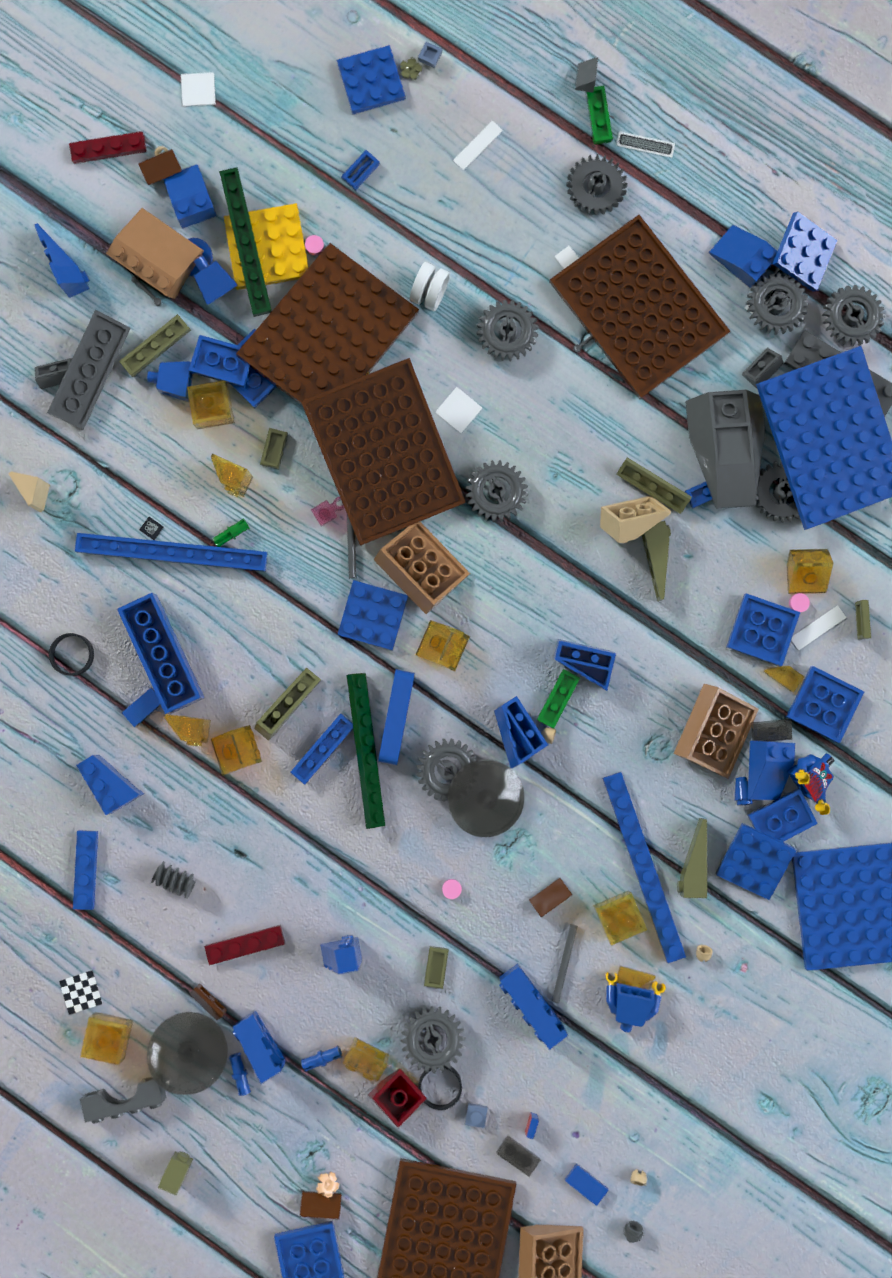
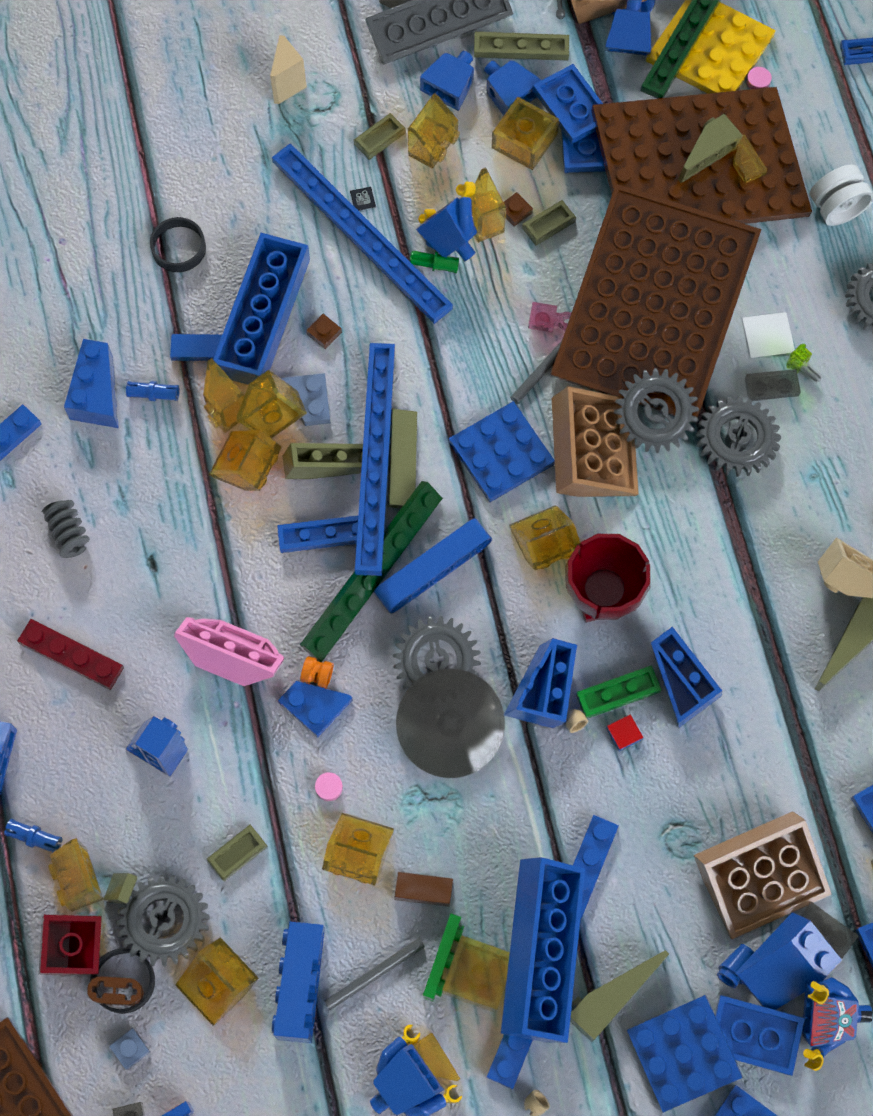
camera: 45 degrees right, 15 degrees down
(124, 479) = (379, 136): none -> olive tile
(132, 406) = (449, 78): none -> blue torso
(144, 756) = (152, 391): none -> blue pin
(156, 452) = (432, 132): none -> clear yellow slope
(206, 631) = (324, 331): none -> reddish brown plate
(222, 708) = (270, 405): none -> clear yellow slope
(223, 507) = (451, 226): none -> blue torso
(235, 680) = (314, 397): none -> sand blue wing
(247, 457) = (517, 209): none -> reddish brown plate
(309, 685) = (375, 460): none -> blue plate
(321, 669) = (402, 457): none -> olive tile
(328, 318) = (715, 142): none -> olive slope
(331, 865) = (228, 650): none -> bright pink wedge
(357, 311) = (748, 162): none -> clear yellow tile
(388, 834) = (316, 672): none -> orange wheel
(396, 1045) = (120, 888): none -> olive tile
(403, 852) = (314, 705): none -> blue wing
(447, 1101) = (114, 998): none -> reddish brown beam
(459, 518) = (674, 428): none -> dark grey gear
(488, 441) = (772, 385): none -> clear smoke plate
(489, 1042) = (216, 980): none -> clear yellow slope
(490, 412) = (800, 359): none -> clear neon green piece
(498, 908) = (357, 849): none -> clear yellow slope
(501, 644) = (607, 577): none -> dark red plate
(580, 717) = (624, 733): none -> red tile
(593, 924) = (443, 958): none -> green plate
(645, 879) = (543, 951): none -> blue brick

